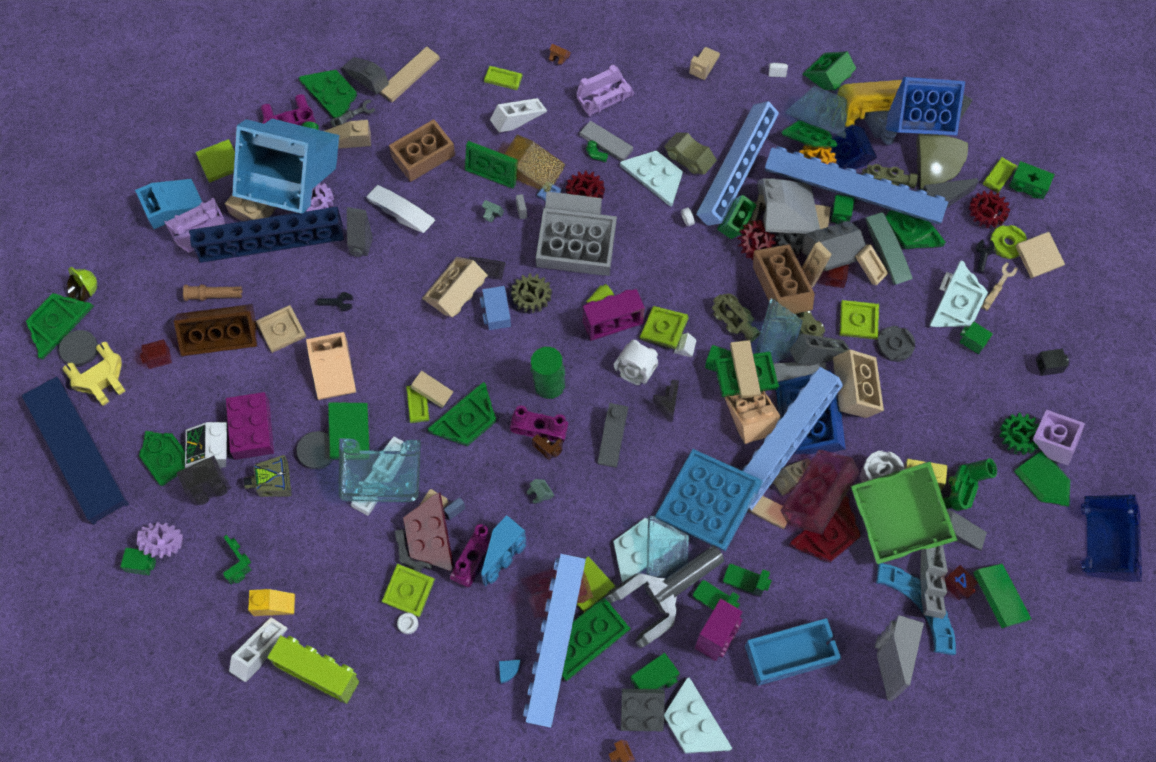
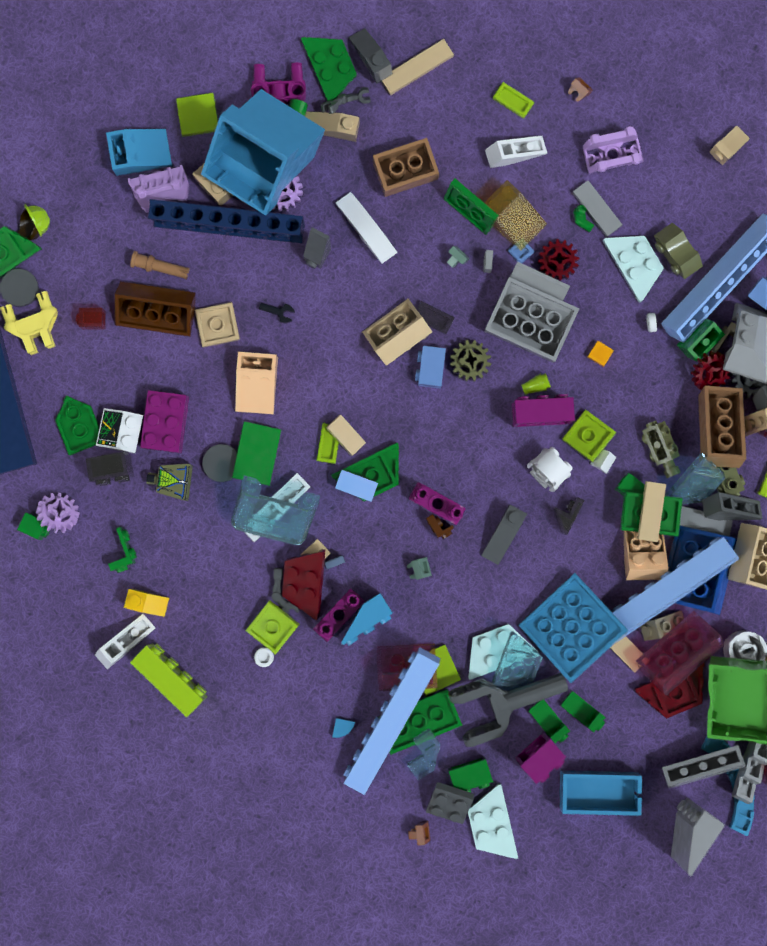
camera: 15 degrees right, 20 degrees up
(455, 428) = (356, 485): none -> light blue slope
(548, 372) = (461, 457): green piece -> none
(605, 678) = (426, 761): none -> clear light blue tile
(650, 256) = (600, 353): none -> light orange tile
(885, 593) = (703, 767): none -> light grey brick

